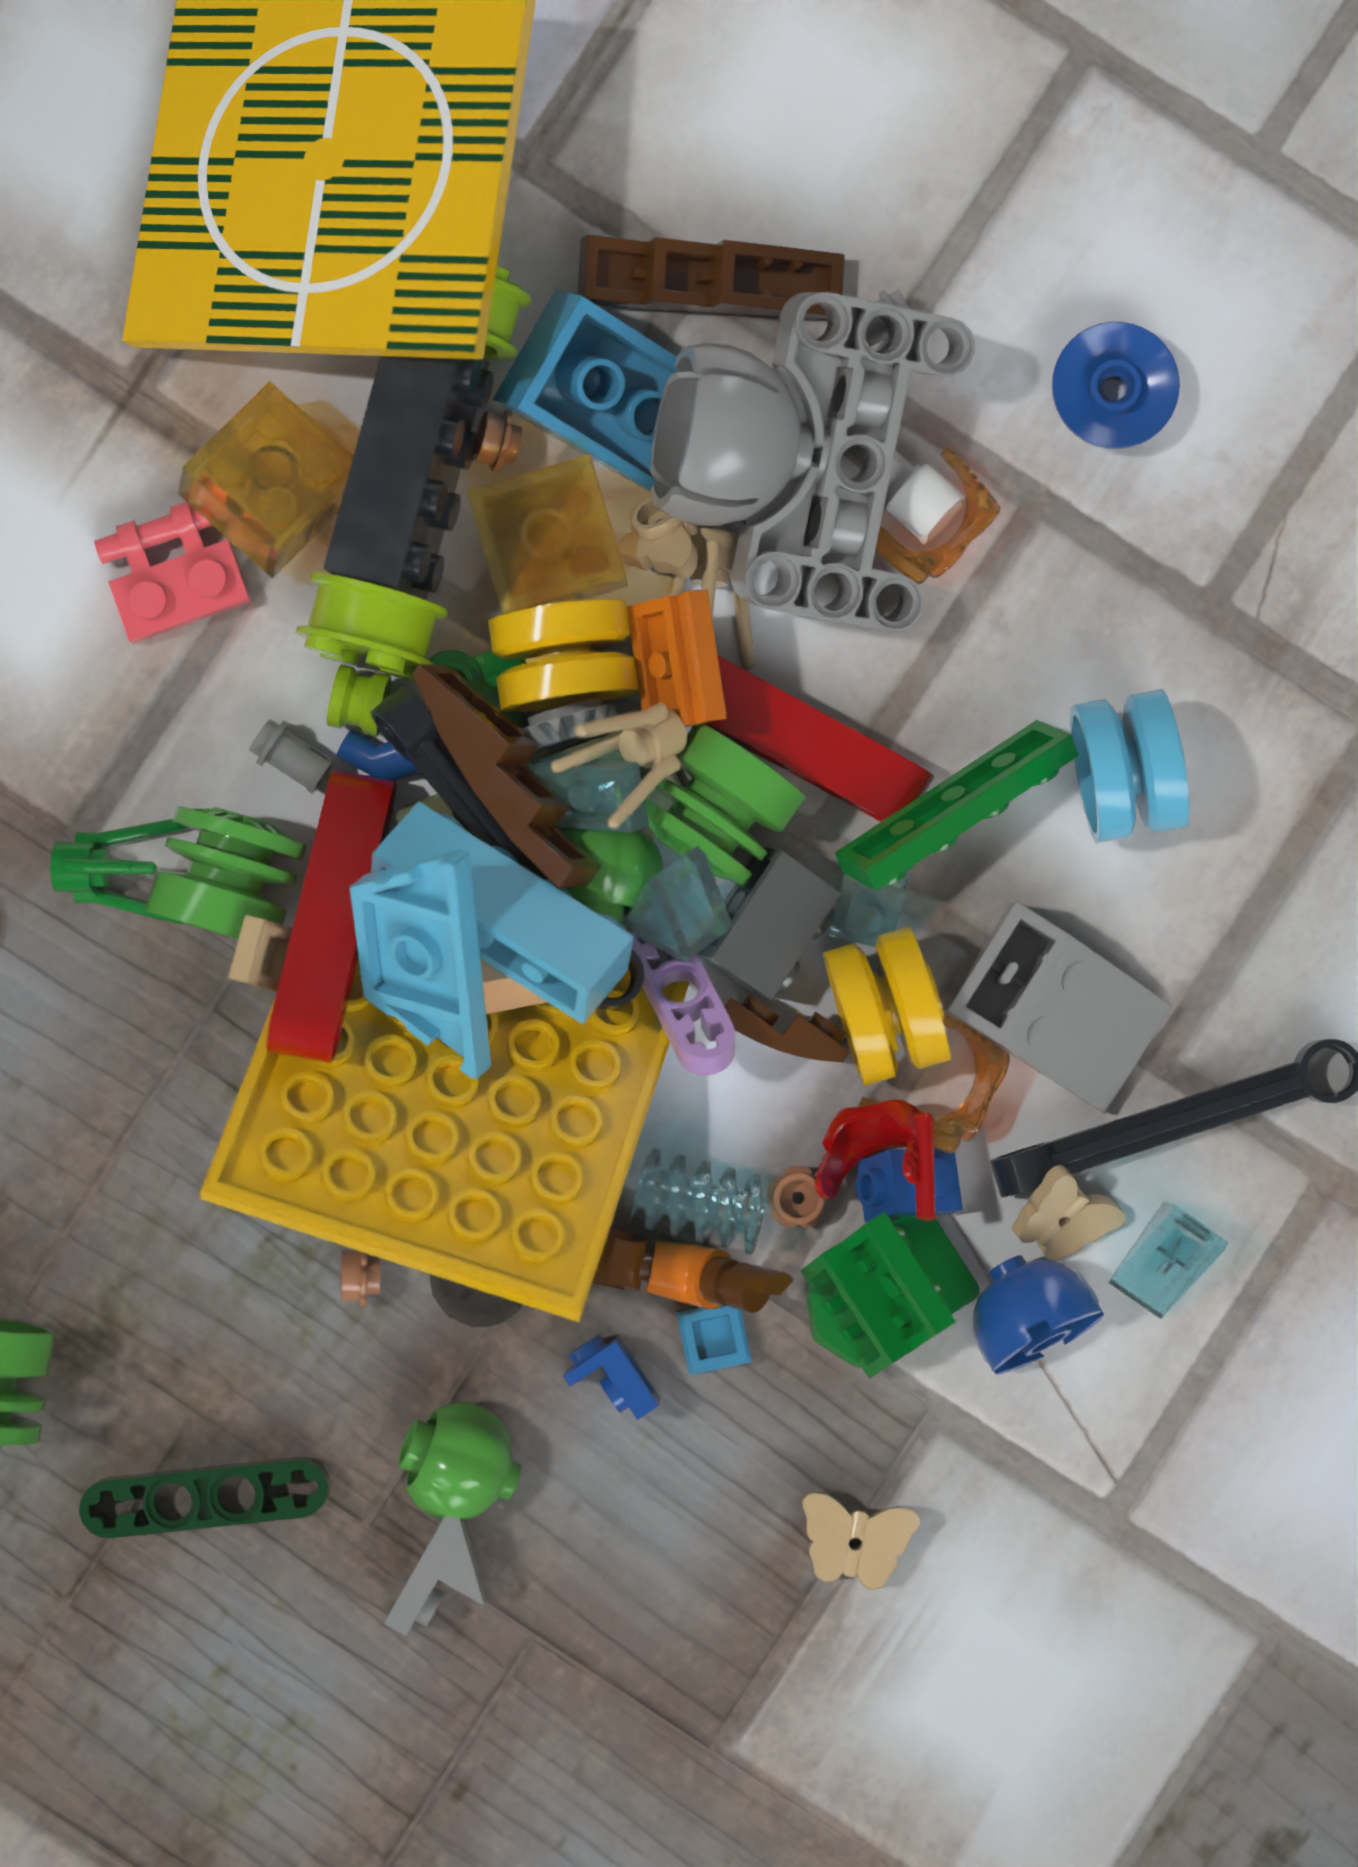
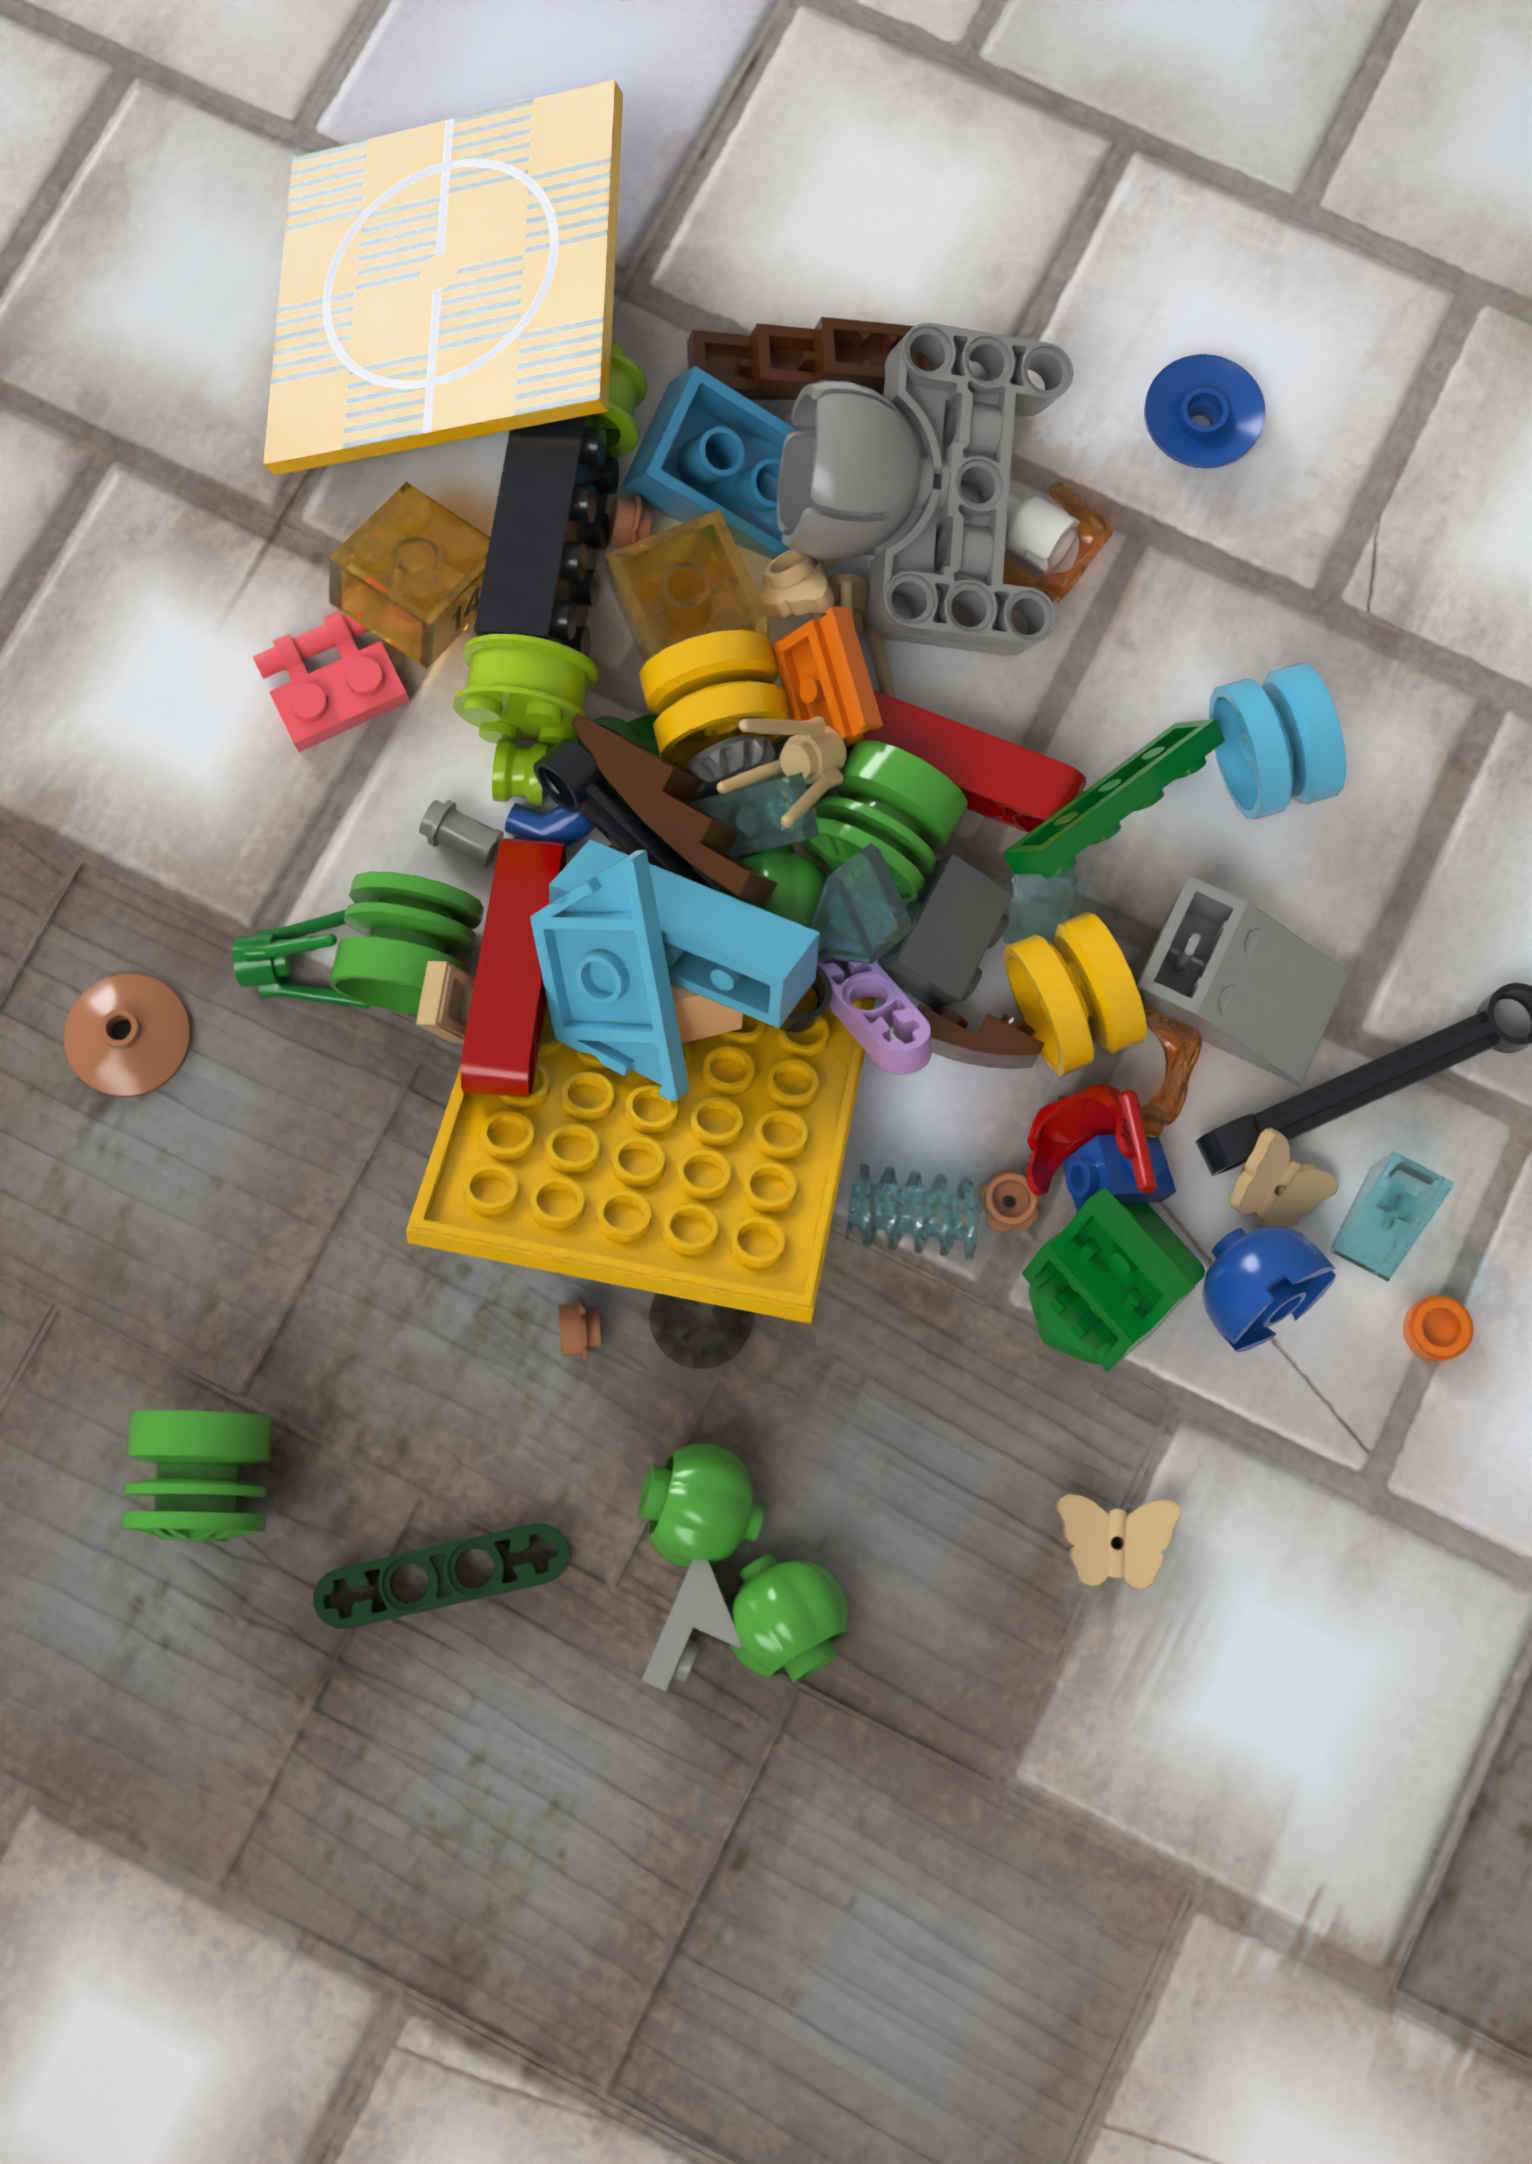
camera: 10 degrees left, 10 degrees down
(531, 1576) = (788, 1617): none -> bright green plant
(624, 1381) = (859, 1403): blue bracket -> none
(686, 1273) = (909, 1285): reddish brown piece -> none
(713, 1338) = (943, 1350): dark azure tile -> none
(1201, 1371) = (1438, 1328): none -> orange tile

